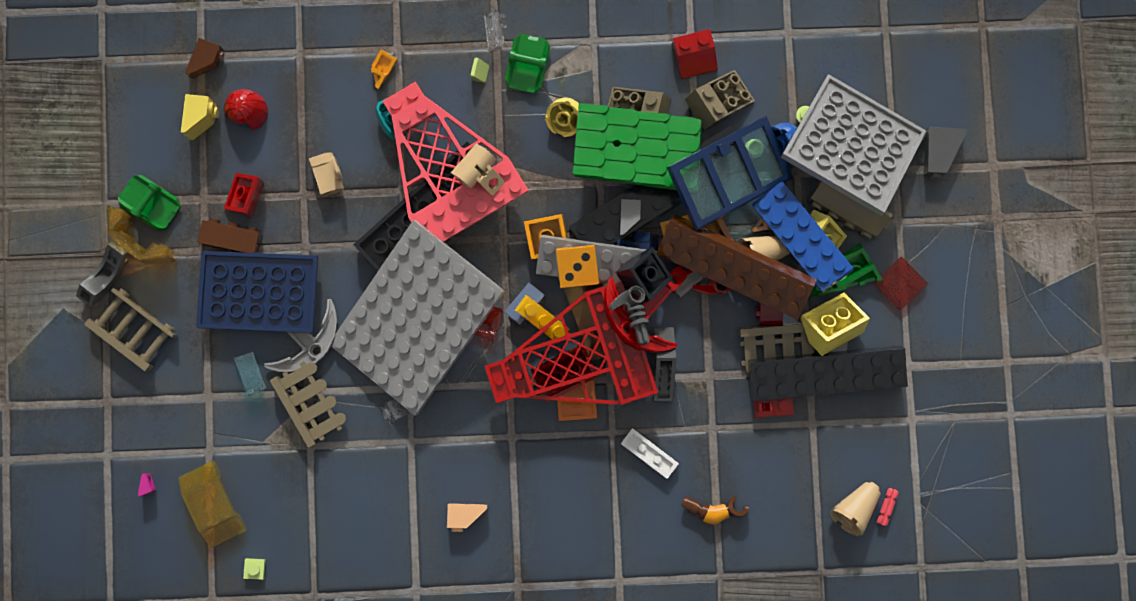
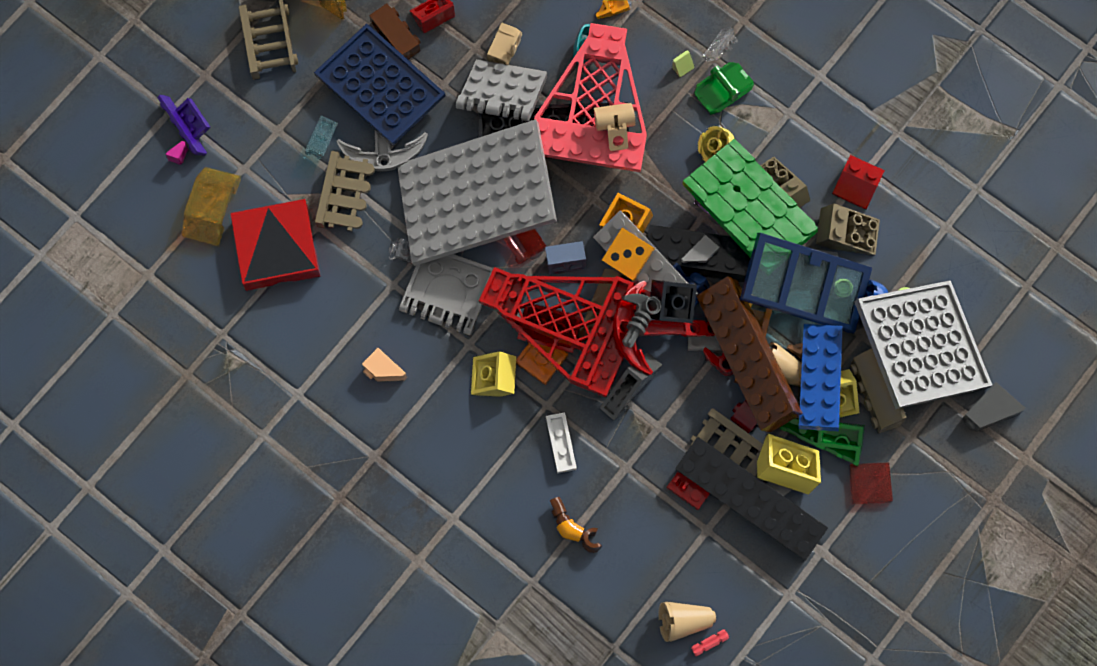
camera: 50 degrees right, 10 degrees down
(130, 453) = (188, 121): none -> dark purple bracket
(254, 568) = (198, 277): yellowish green plate -> none
(291, 491) = (275, 244): none -> tile
(358, 212) = (502, 87): none -> light grey hinge
(457, 406) = (448, 286): none -> light grey hinge
(540, 317) = (567, 268): yellow plate -> none
(553, 446) = (493, 374): none -> light yellow slope

